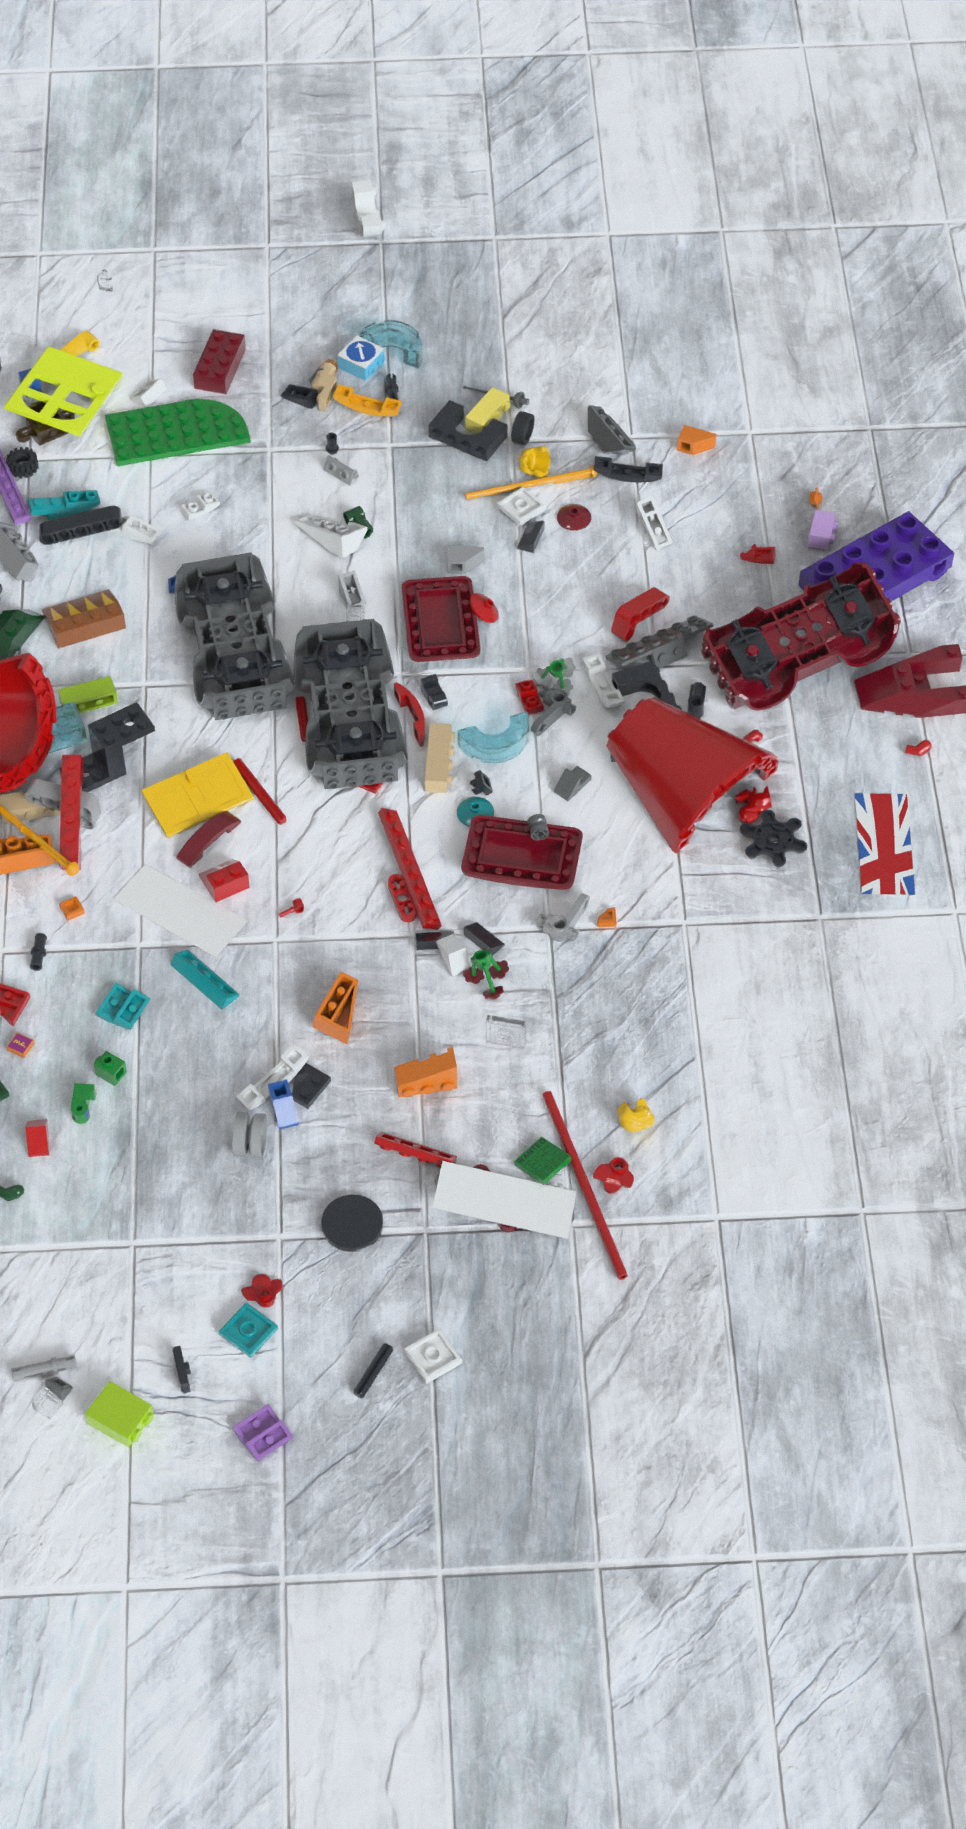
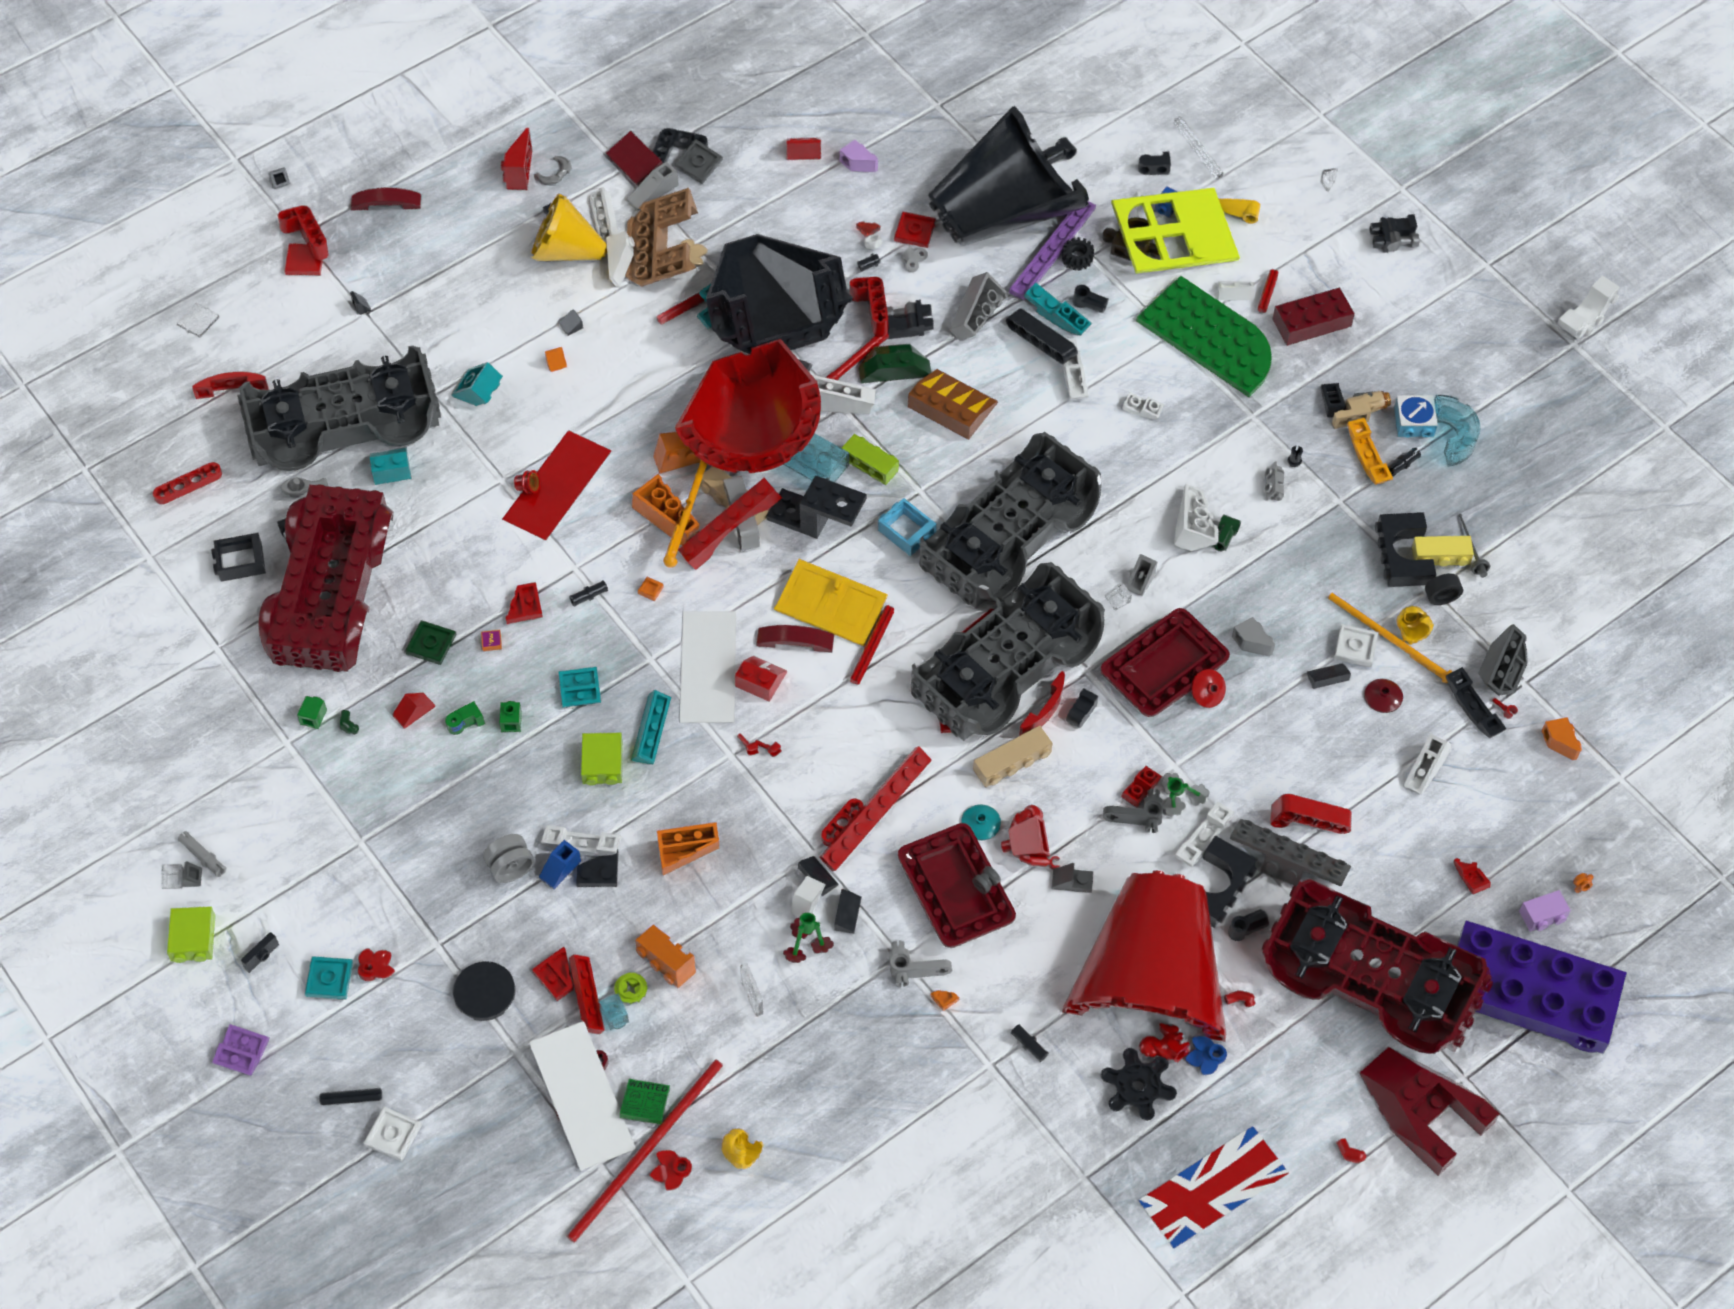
camera: 55 degrees right, 5 degrees up
(68, 480) = (1085, 298): none -> black piece
(168, 374) = (1268, 290): none -> red axle
(171, 696) = (911, 545): none -> medium azure window
(191, 274) = (1394, 233): none -> black hips
(206, 1024) = (602, 758): none -> lime brick
(284, 921) = (751, 748): none -> red hand
(380, 1163) = (555, 974): none -> red wing
(426, 1113) = (634, 980): none -> lime gear
(448, 1138) = (614, 1012): none -> clear light blue brick
(481, 783) = (1011, 807): black tile -> none
(496, 747) = (1068, 800): clear light blue brick -> none
(519, 785) = (1029, 838): none -> torso
(648, 457) = (1506, 709): none -> red hand
(687, 885) = (1029, 1043): none -> black pin
(778, 787) = (1203, 1055): none -> blue plate

